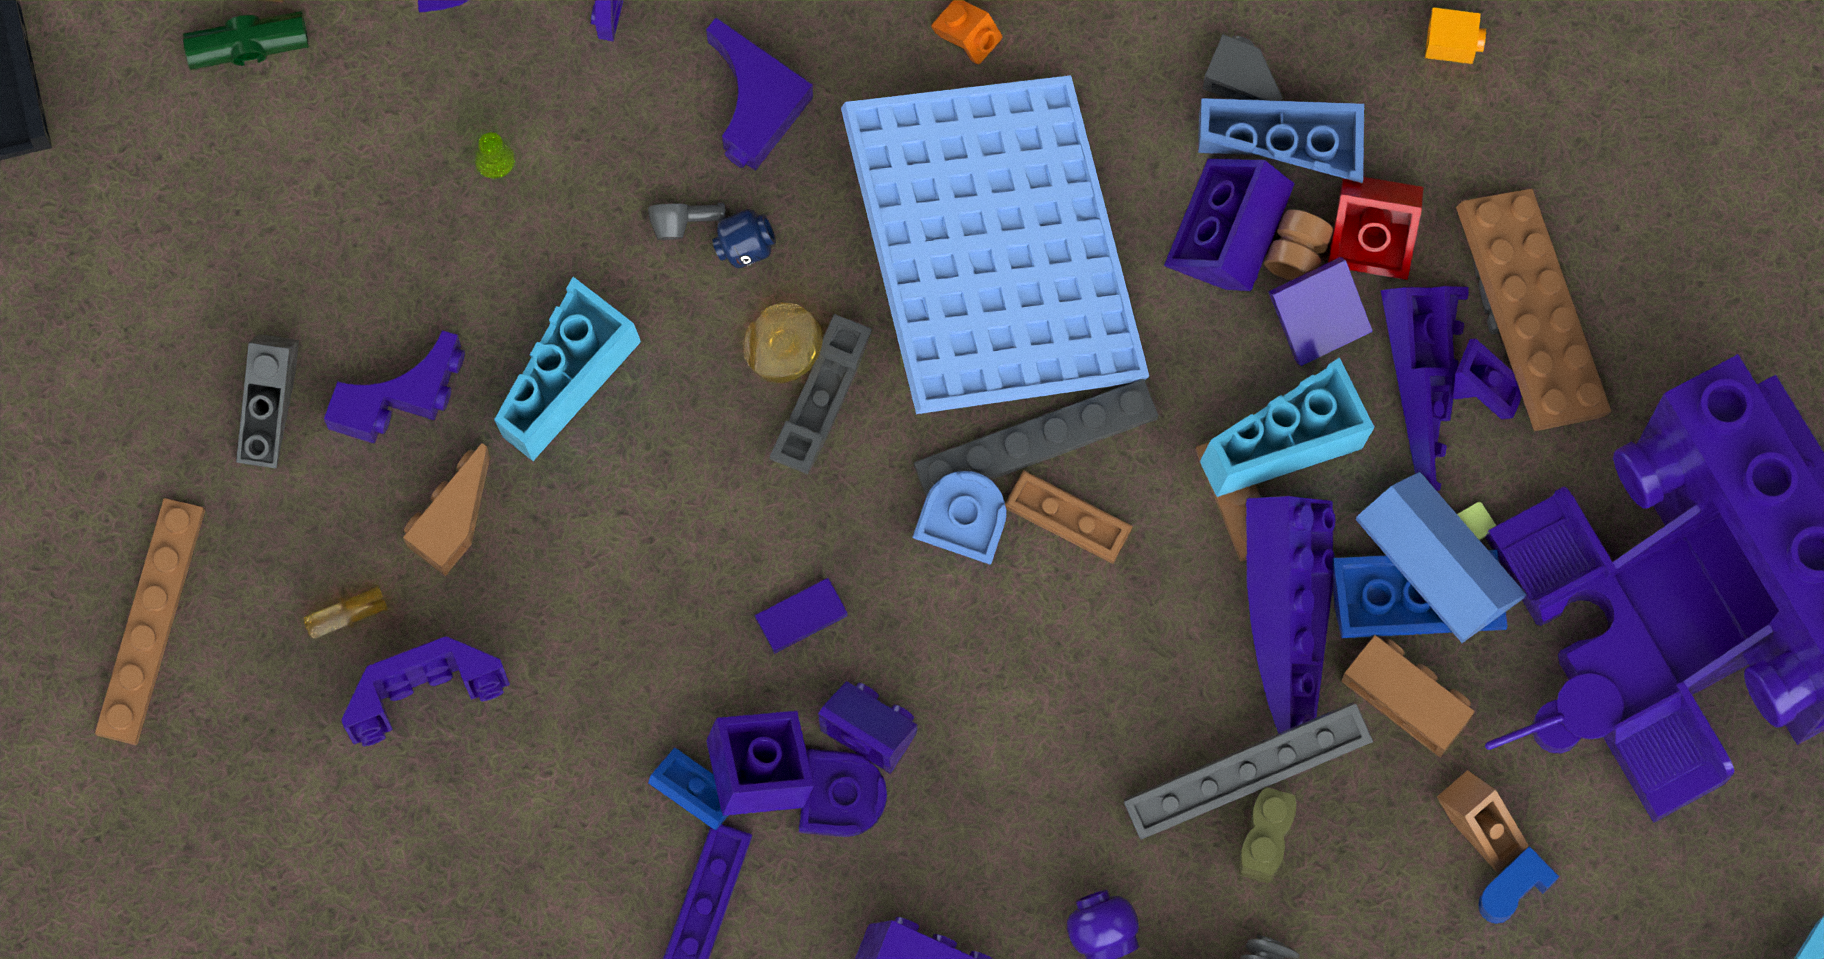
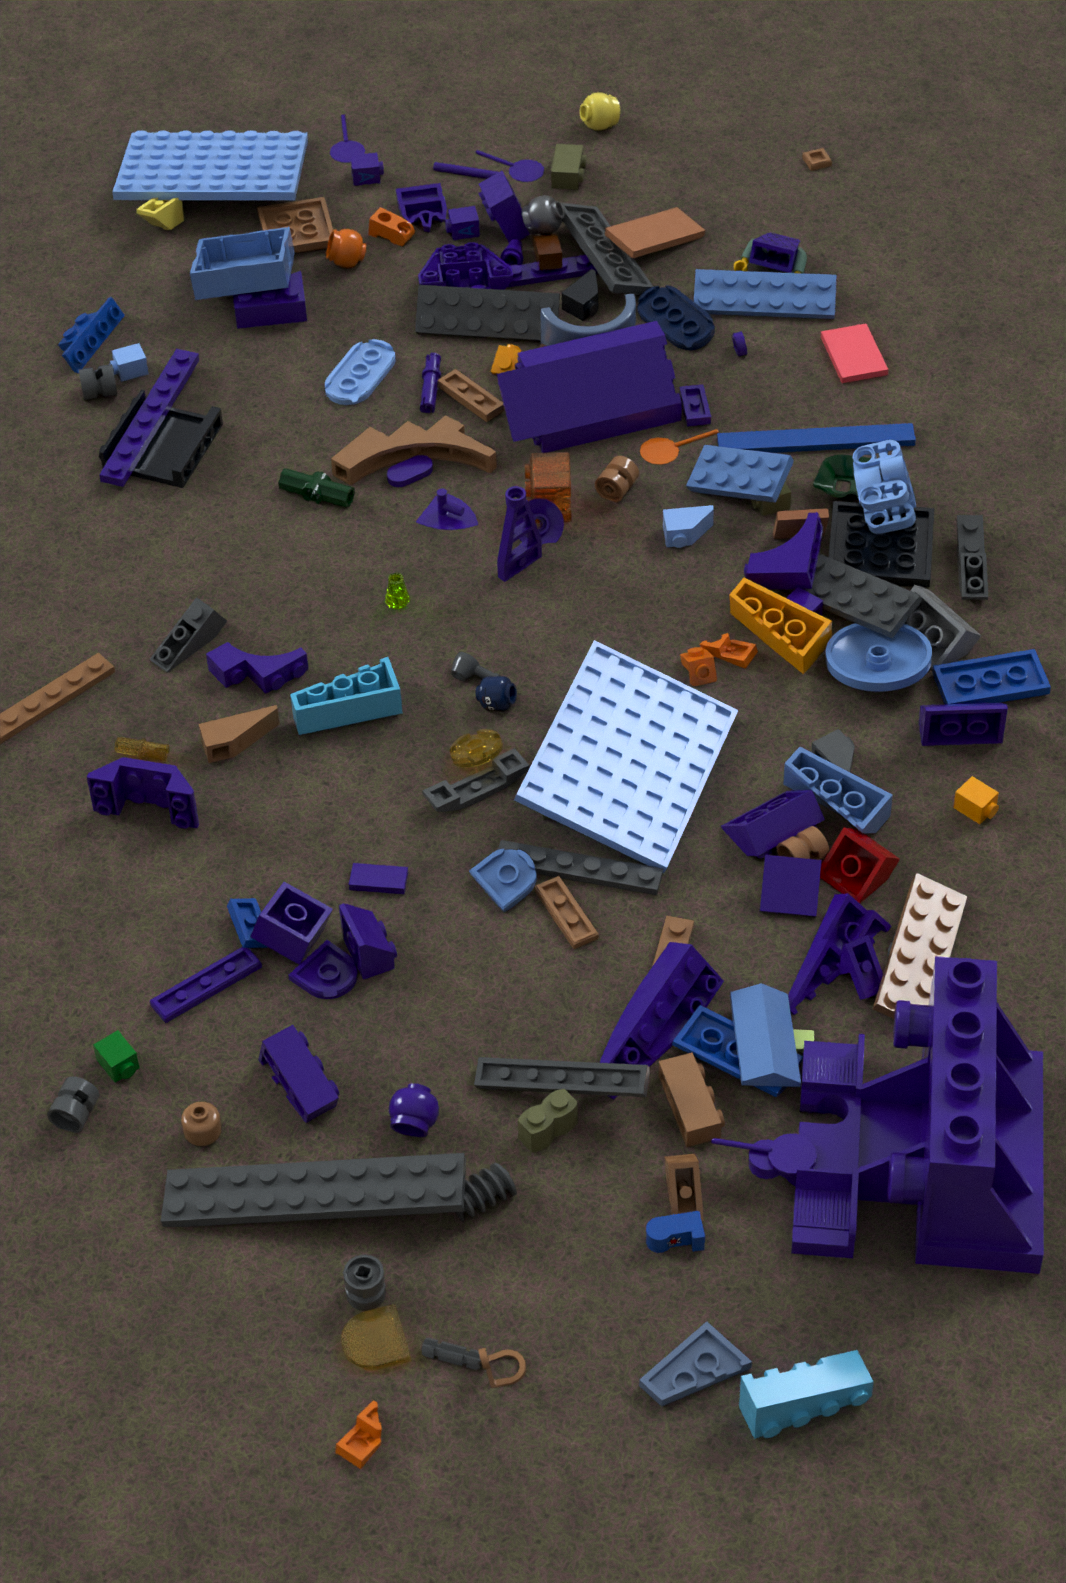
camera: 35 degrees right, 25 degrees down
(767, 97) = (559, 641): dark purple arch -> none
(1292, 432) = (720, 928): medium azure wedge -> none

